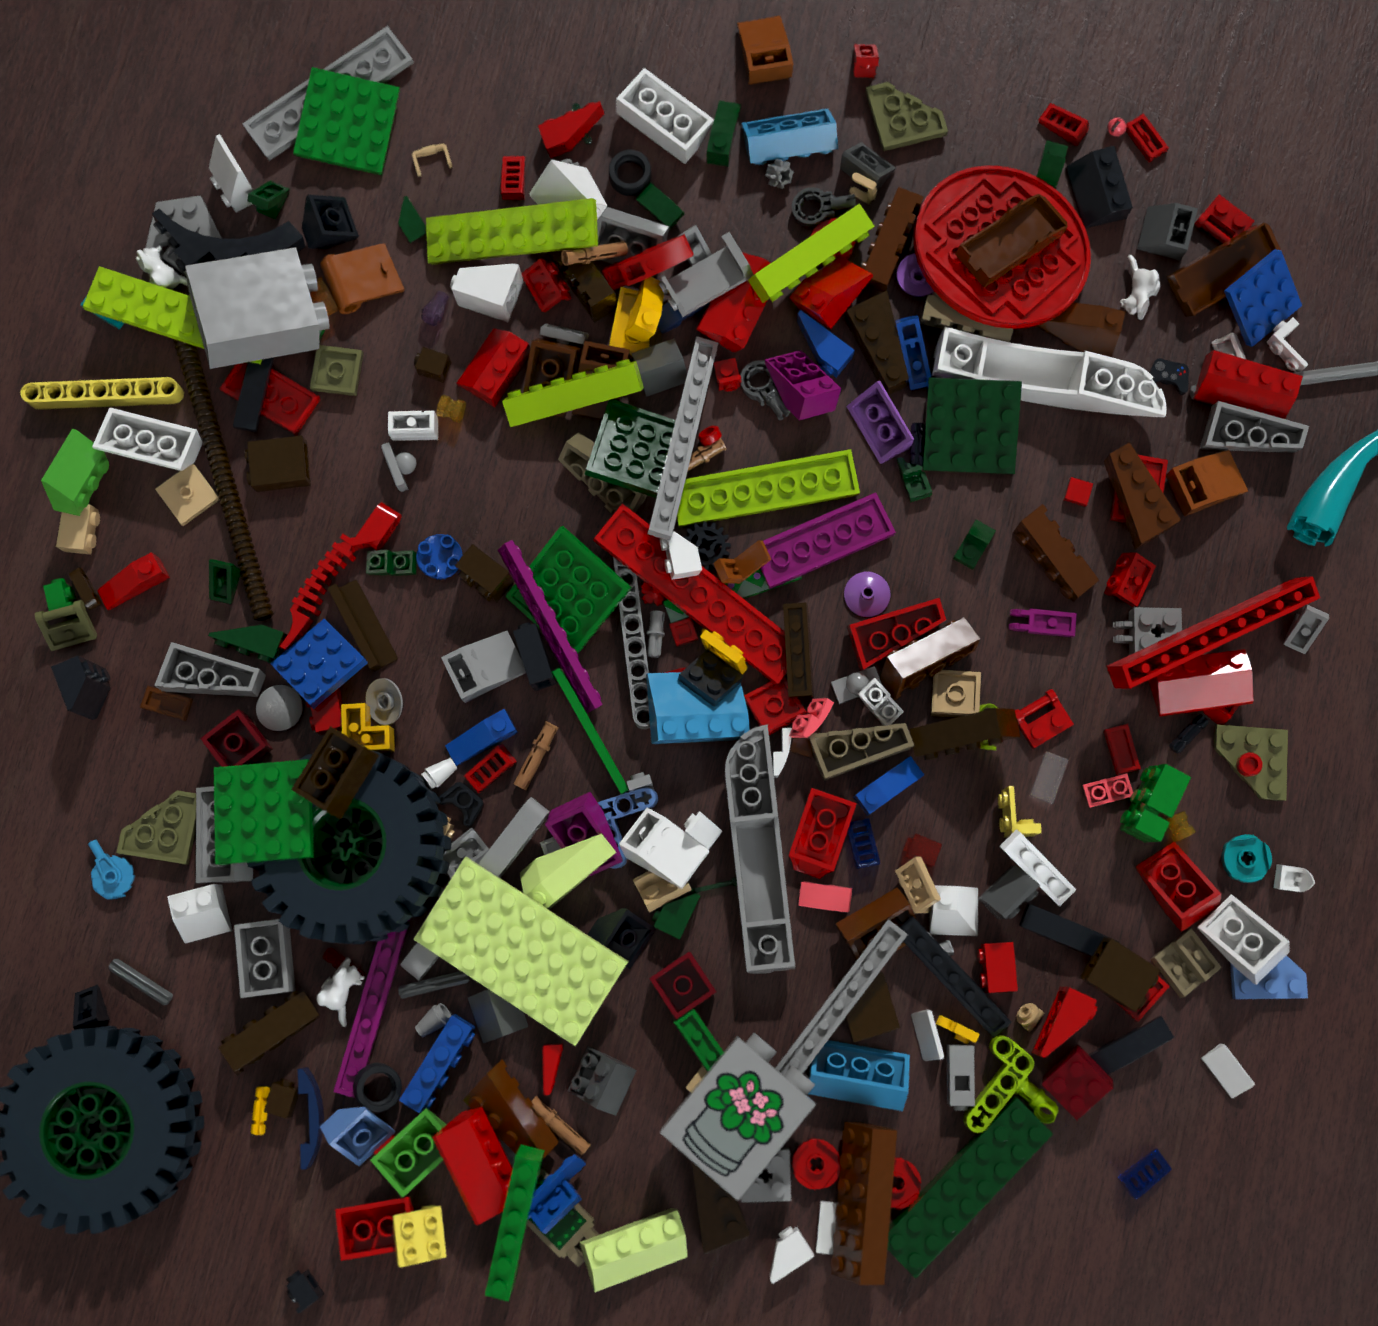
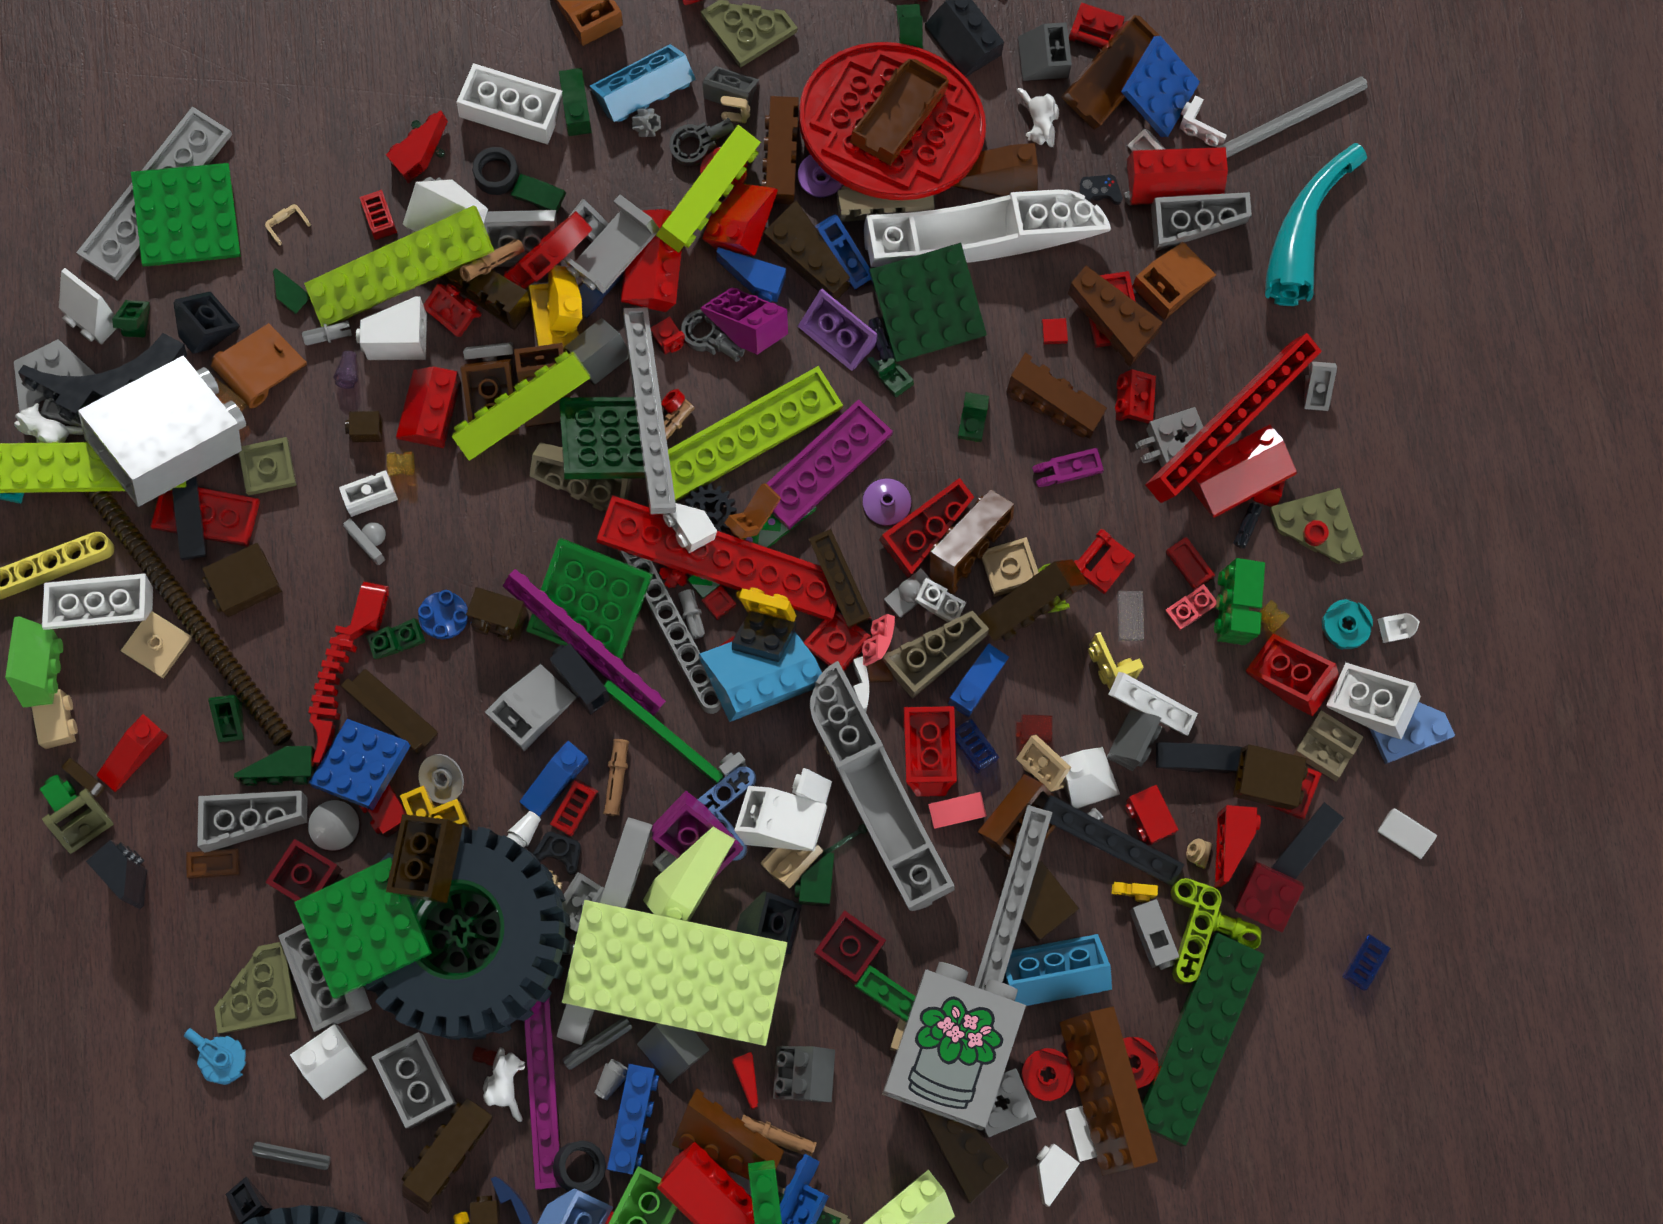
camera: 30 degrees left, 5 degrees down
(430, 269) = (326, 333): none -> light grey axle
(927, 1035) = (1108, 907): white slope -> none

